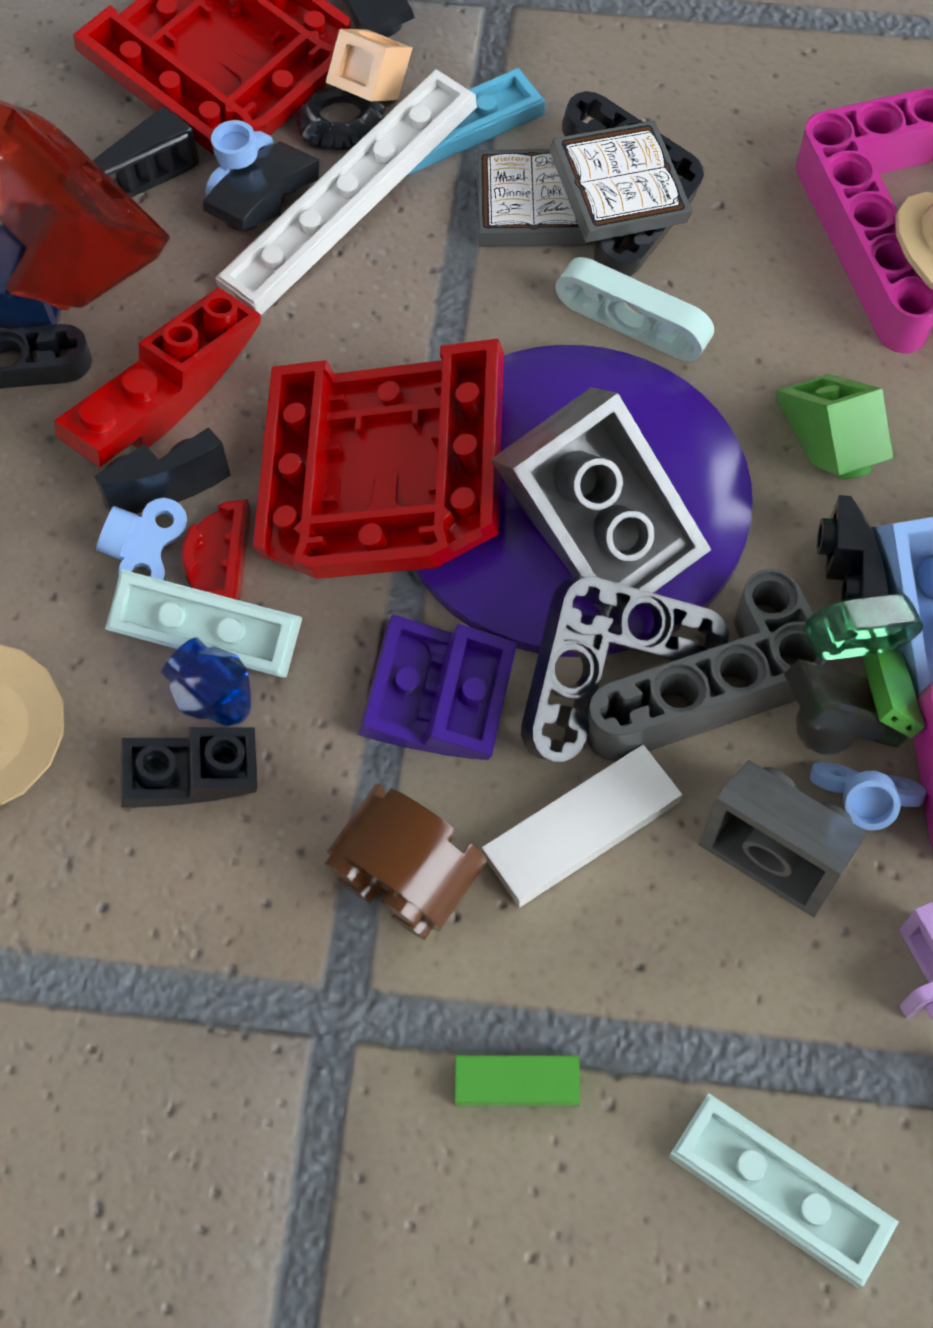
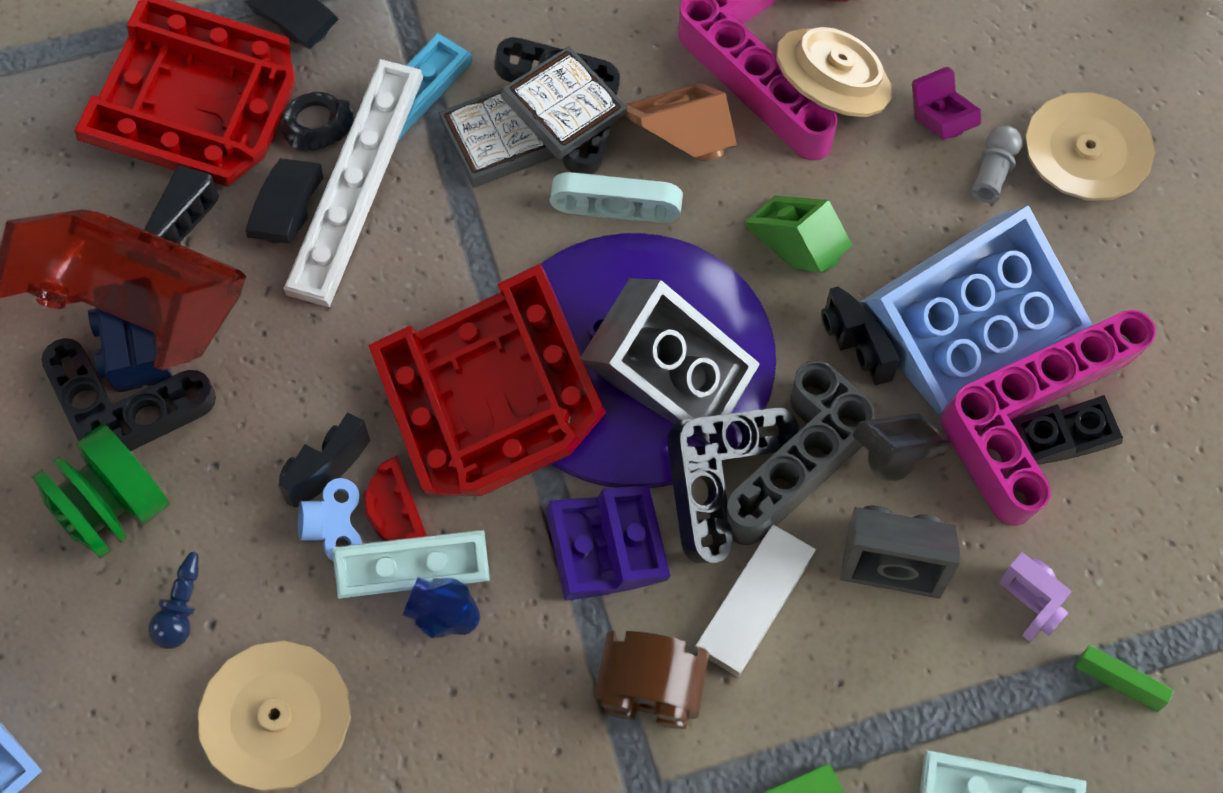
camera: 25 degrees left, 0 degrees up
(172, 375) = (286, 387): red slope -> none
(188, 770) = (454, 677): black slope -> none
(235, 148) = (253, 180): light blue piece -> none
(368, 65) = (324, 72): light nougat brick -> none
(759, 253) = (687, 118): none -> nougat slope
(863, 627) = (890, 380): clear green beam -> none
(868, 795) = (944, 498): light blue piece -> none
(893, 692) = (924, 414): bright green piece -> none

